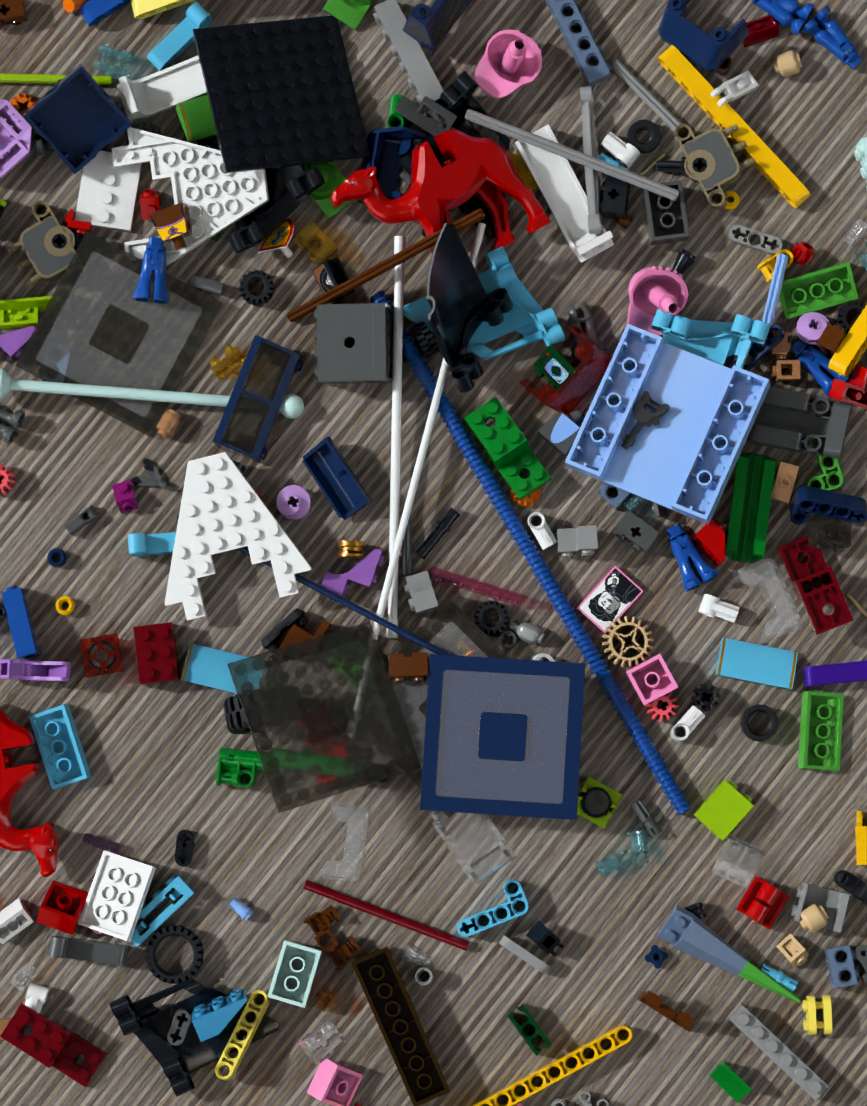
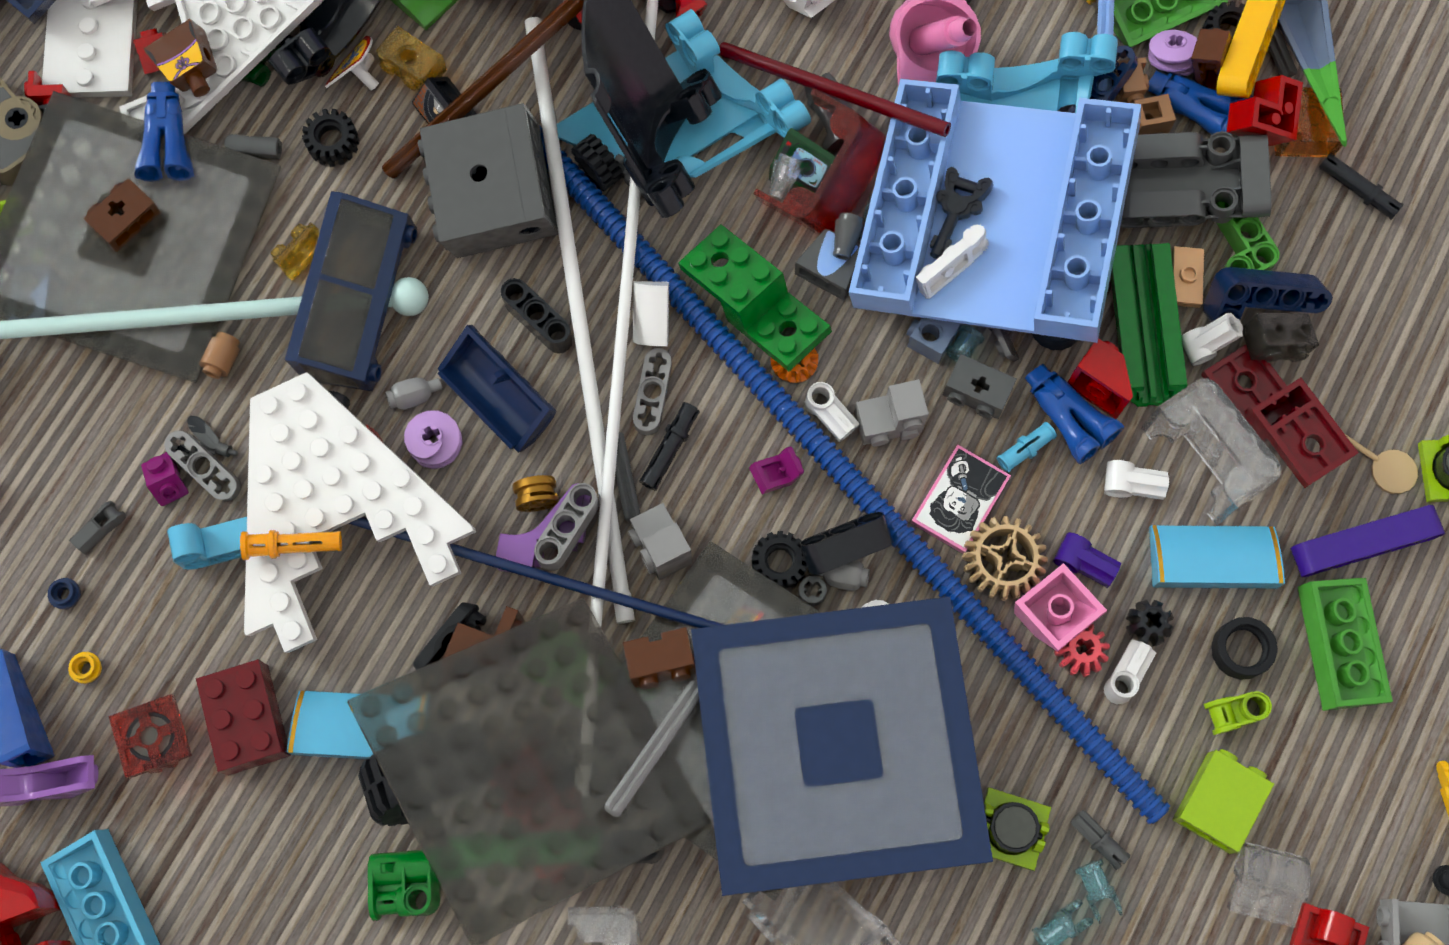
camera: 10 degrees left, 10 degrees down
(131, 323) = (117, 229): none -> reddish brown brick
(154, 507) = (192, 445): none -> light grey beam
(191, 556) = (330, 542): none -> light orange pin
(284, 469) = (411, 392): none -> light grey plant
(366, 425) = (531, 303): none -> black beam
(368, 567) = (566, 541): none -> light grey beam
(396, 720) = (653, 750): none -> light grey axle
(433, 480) = (656, 413): none -> light grey beam
(441, 447) = (651, 313): none -> white brick
(477, 587) = (747, 515): clear pink plate -> none
(500, 562) = (777, 471): none -> magenta bracket
(533, 616) = (846, 543): none -> black beam
(541, 373) = (784, 174): none -> clear cone
(572, 421) = (847, 232): none -> dark grey cone
(583, 319) = (836, 89): none -> dark red piece
(633, 454) = (953, 261): none -> white hinge
(645, 579) = (1012, 457): none -> medium azure pin
(673, 649) = (1082, 558): none -> dark purple piece
(743, 759) = (1232, 712): none -> lime piece
(784, 528) = (1204, 342): none -> white piece

